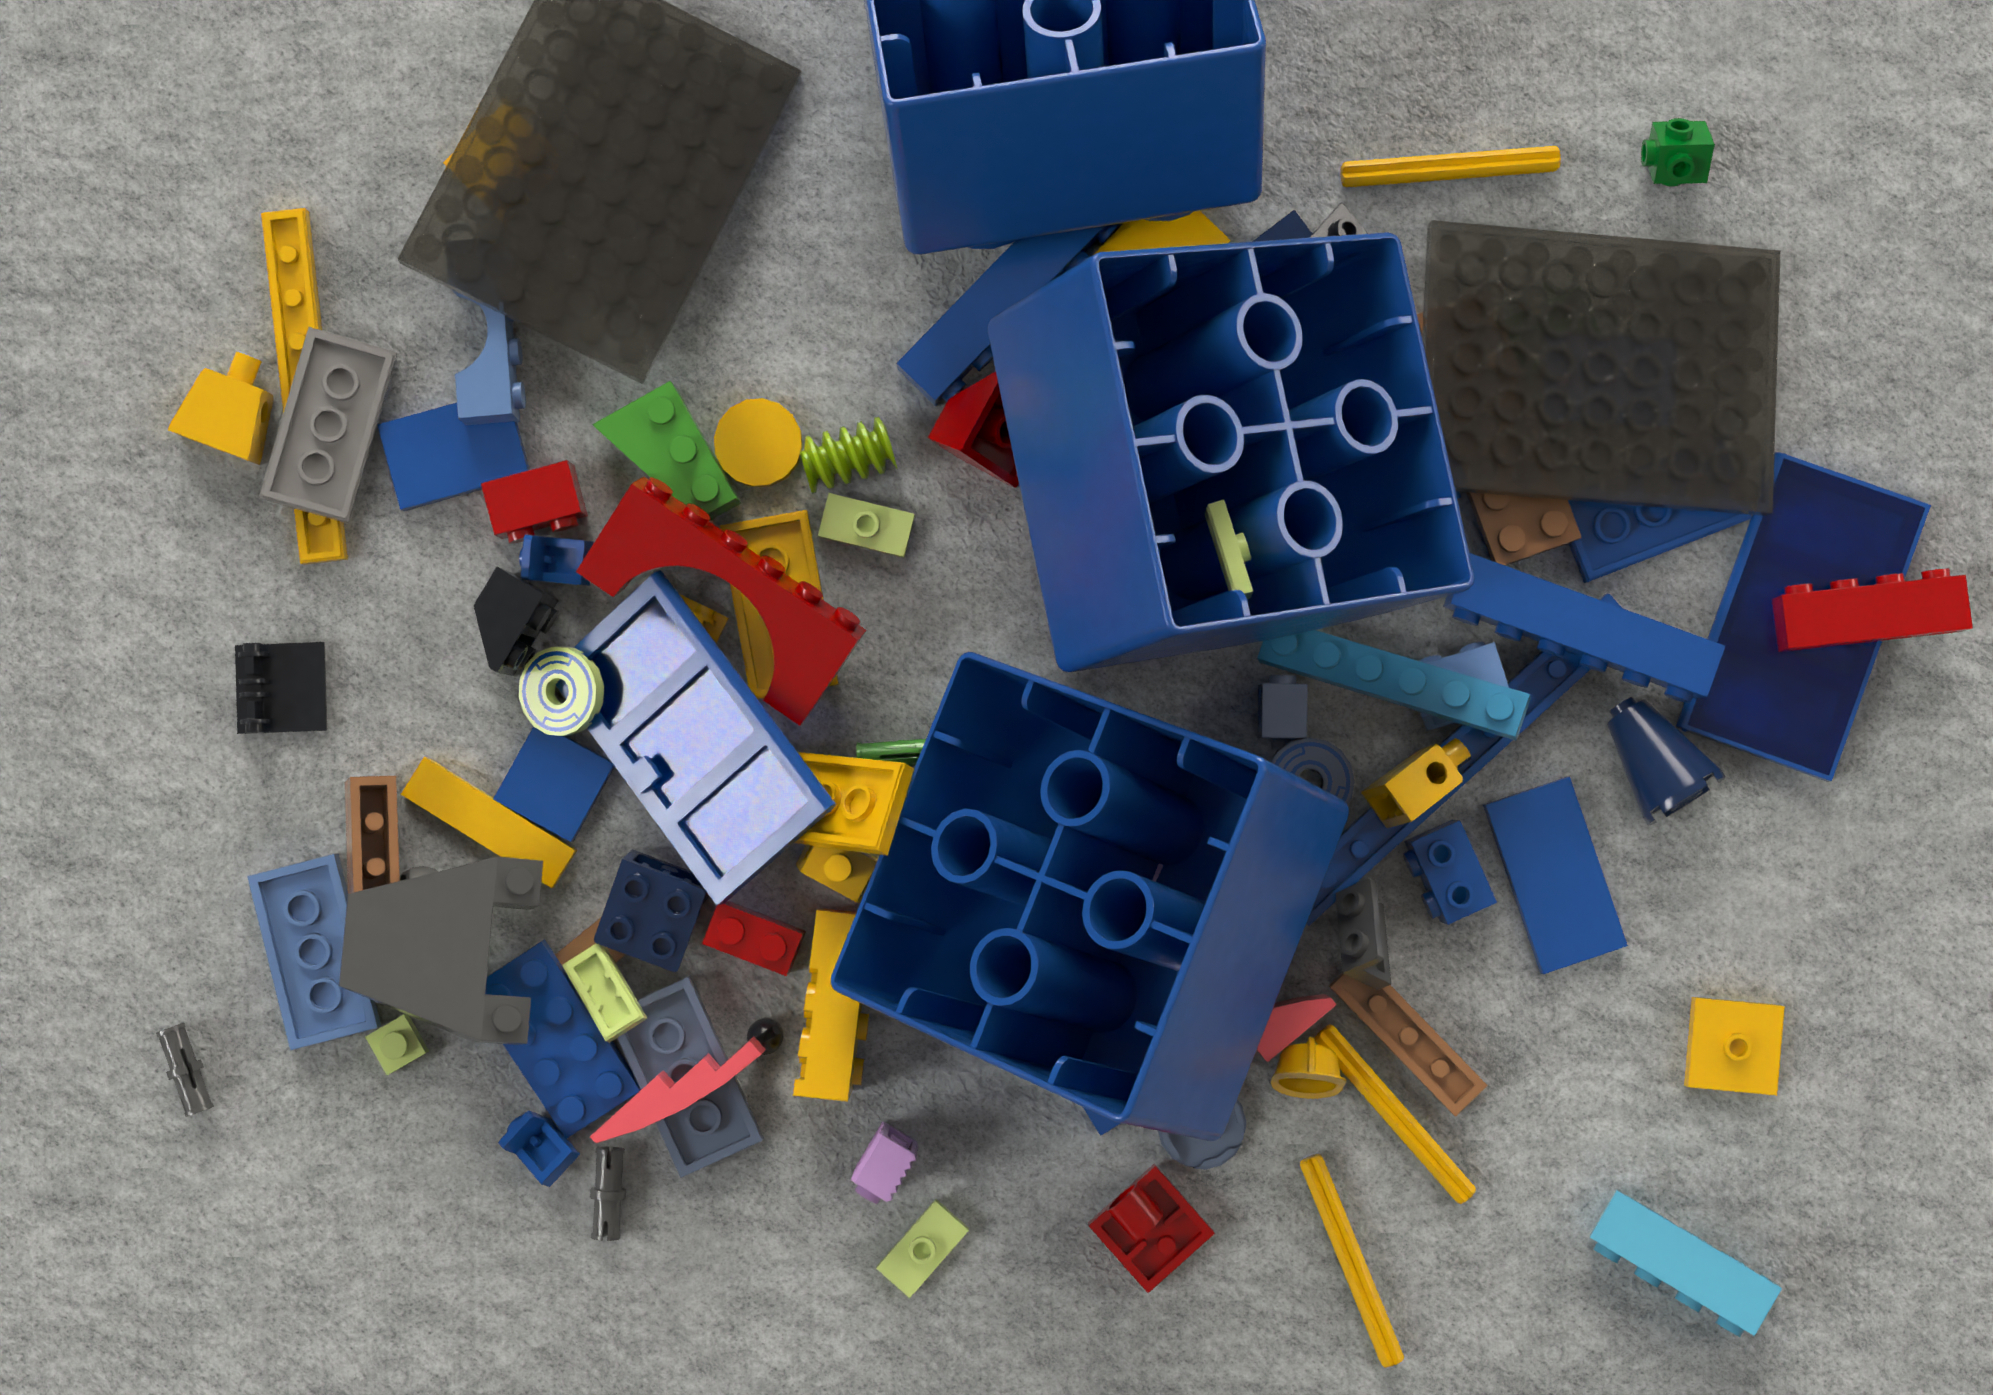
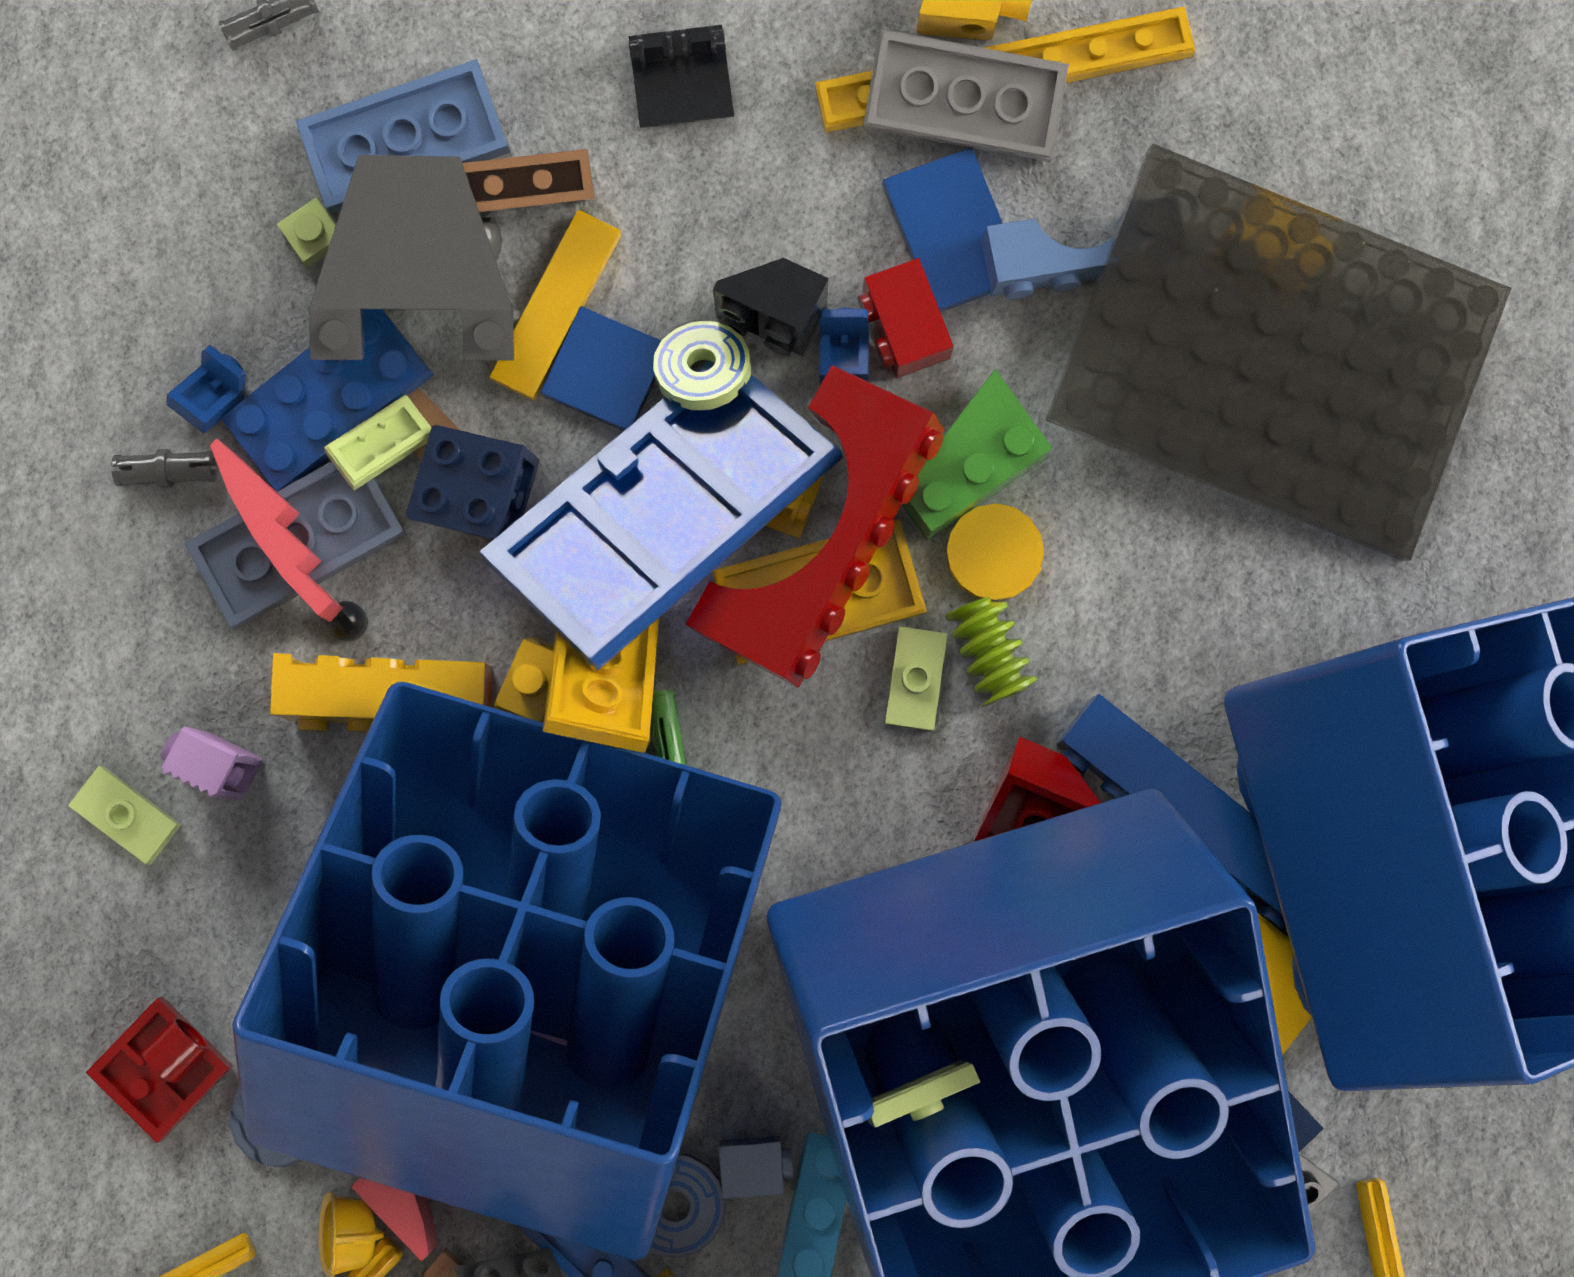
camera: 85 degrees right, 5 degrees down
(754, 937) = (450, 598): red brick -> none

